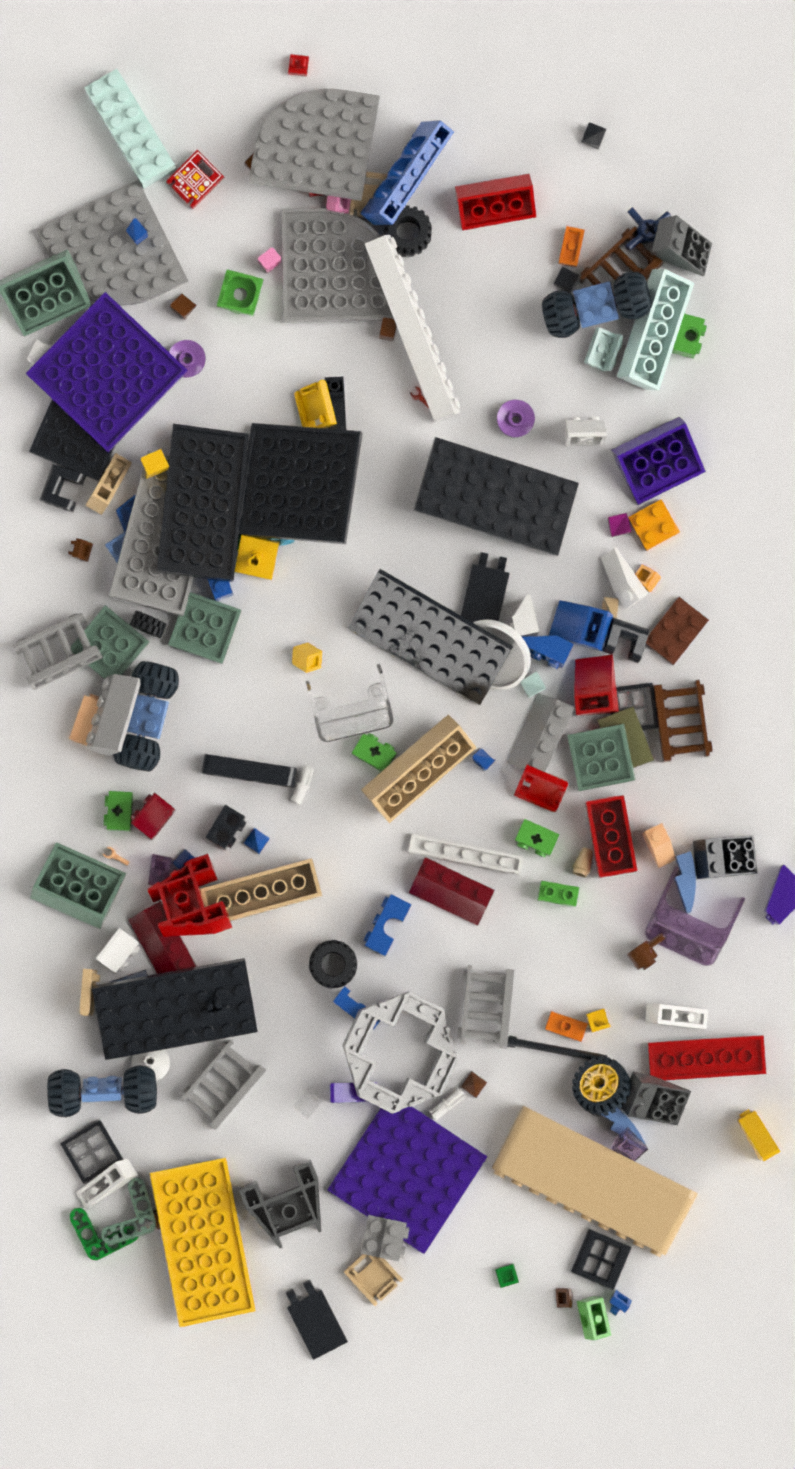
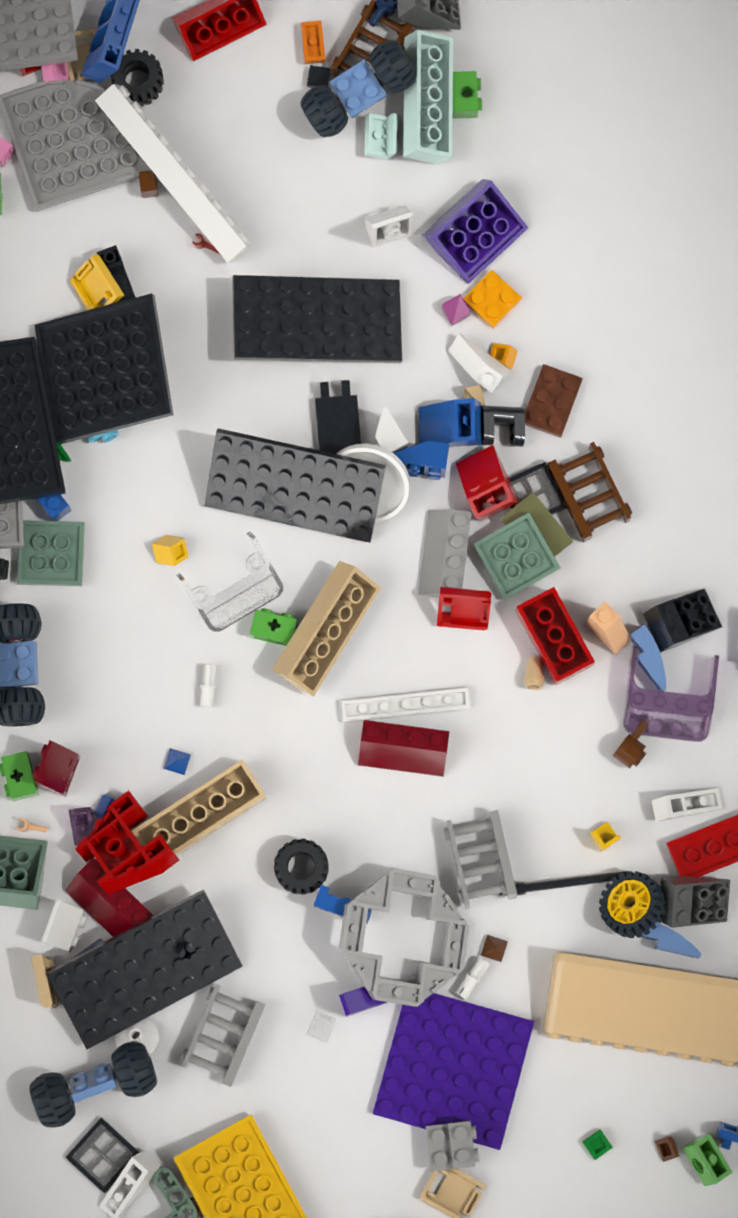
camera: 15 degrees left, 5 degrees down
(222, 825) = (134, 756): black brick -> none
(249, 770) = (145, 689): black beam -> none
(257, 556) = (83, 461): yellow tile -> none
(288, 1209) = (337, 1148): dark grey wedge -> none
(393, 909) = (348, 786): blue arch -> none
(482, 759) = (392, 599): blue slope -> none
(522, 411) = (310, 224): medium lavender dish -> none
(530, 829) = (465, 657): bright green brick -> none
(533, 685) = (419, 503): light aqua slope -> none
(558, 893) = (518, 714): bright green brick -> none
(566, 1026) = (573, 854): orange plate -> none
(601, 1259) = (693, 1093): black piece -> none
(629, 1145) = (683, 958): clear purple slope -> none

